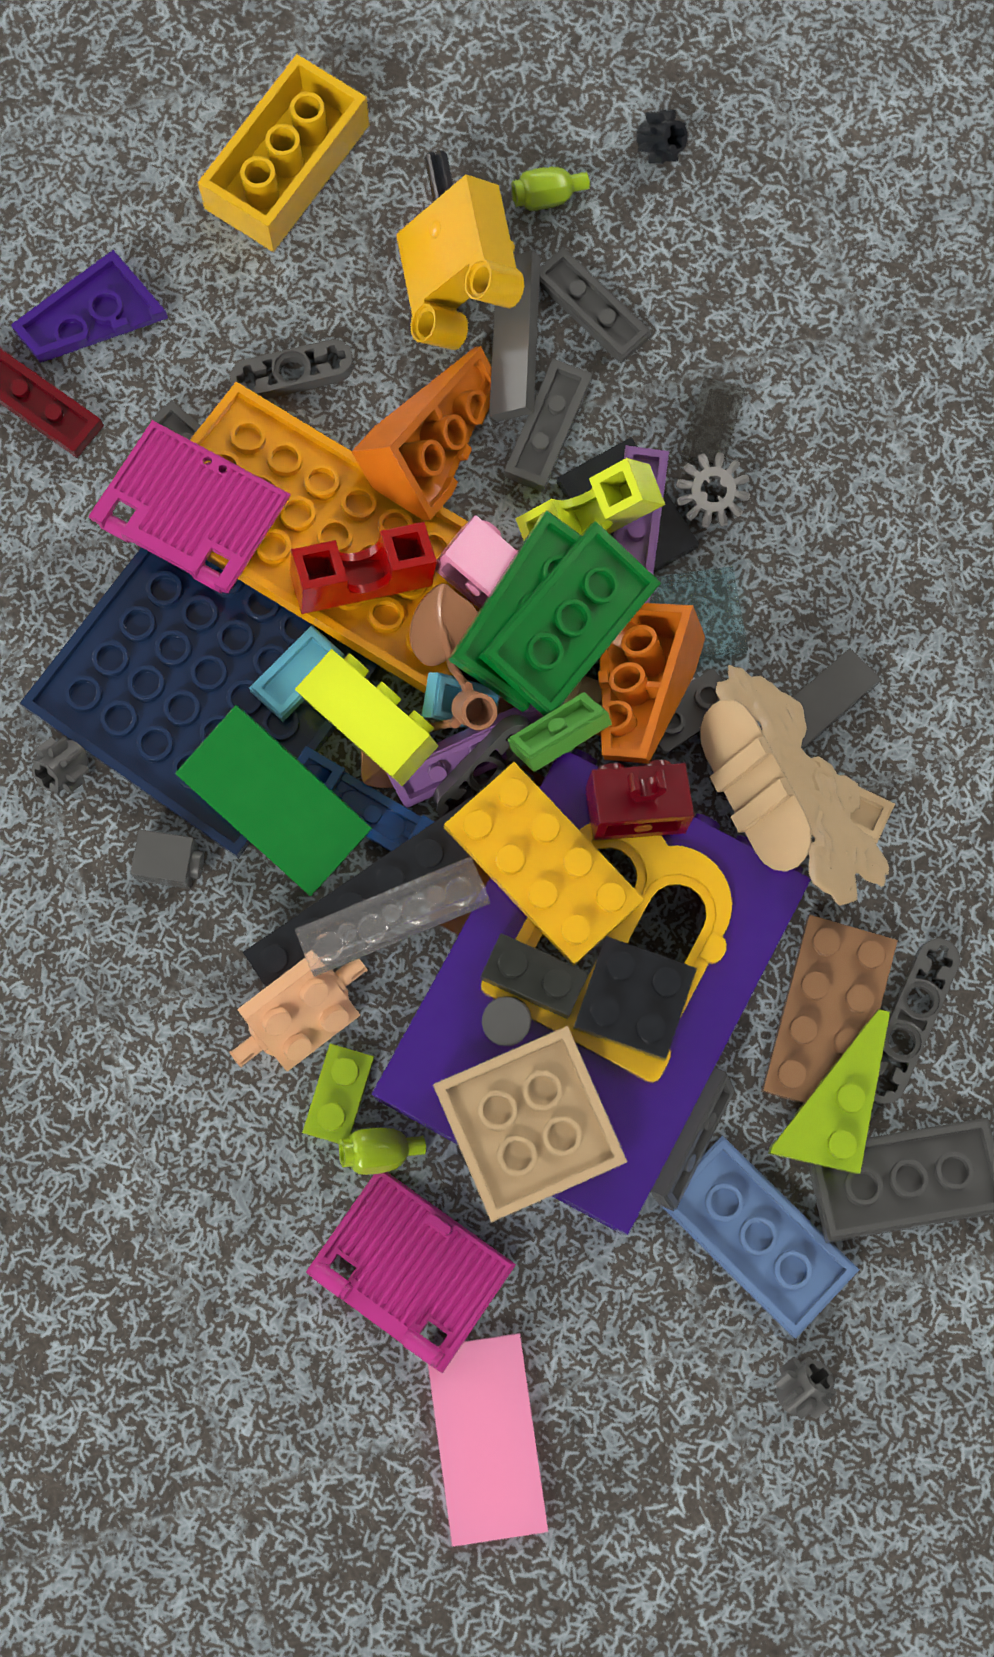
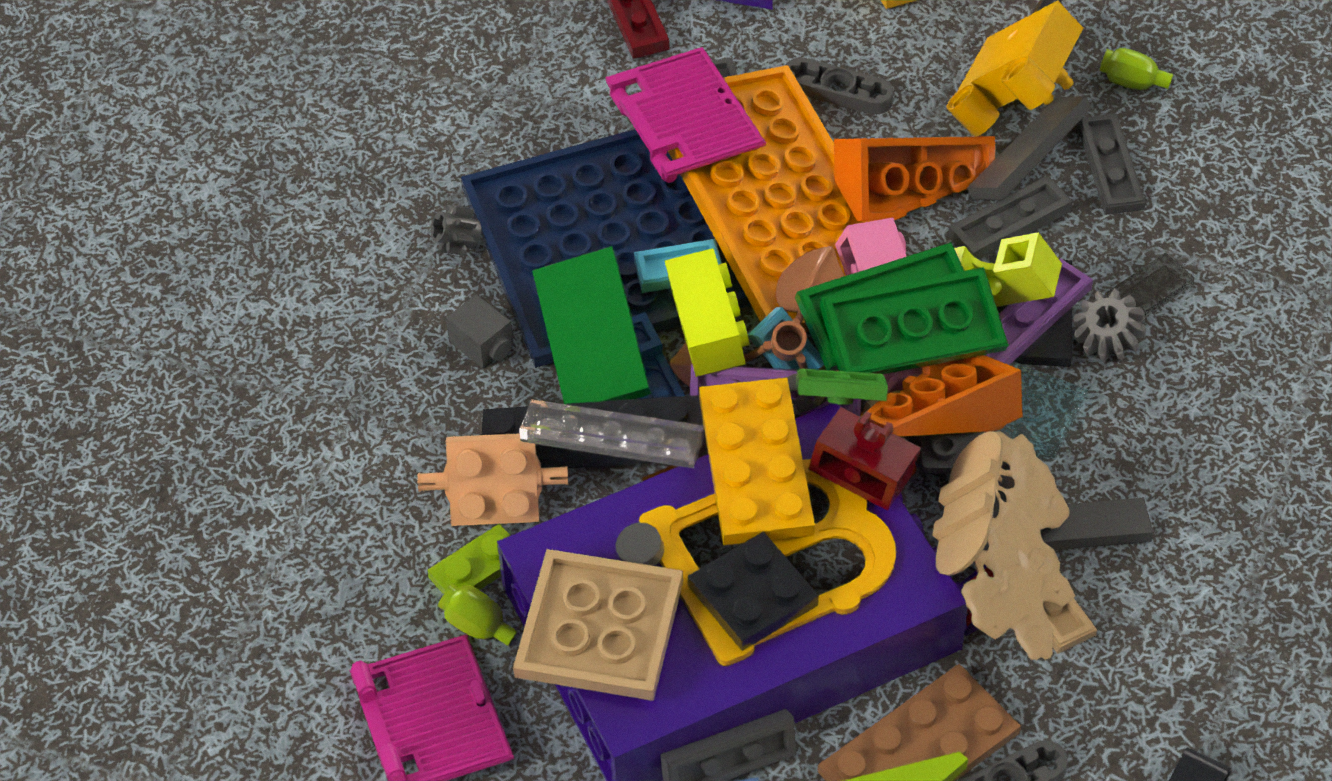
camera: 40 degrees right, 25 degrees down
(393, 565) = (749, 205): red arch -> none
(534, 976) = (685, 528): pearl dark grey plate -> none
(662, 136) = (1263, 84): black gear -> none

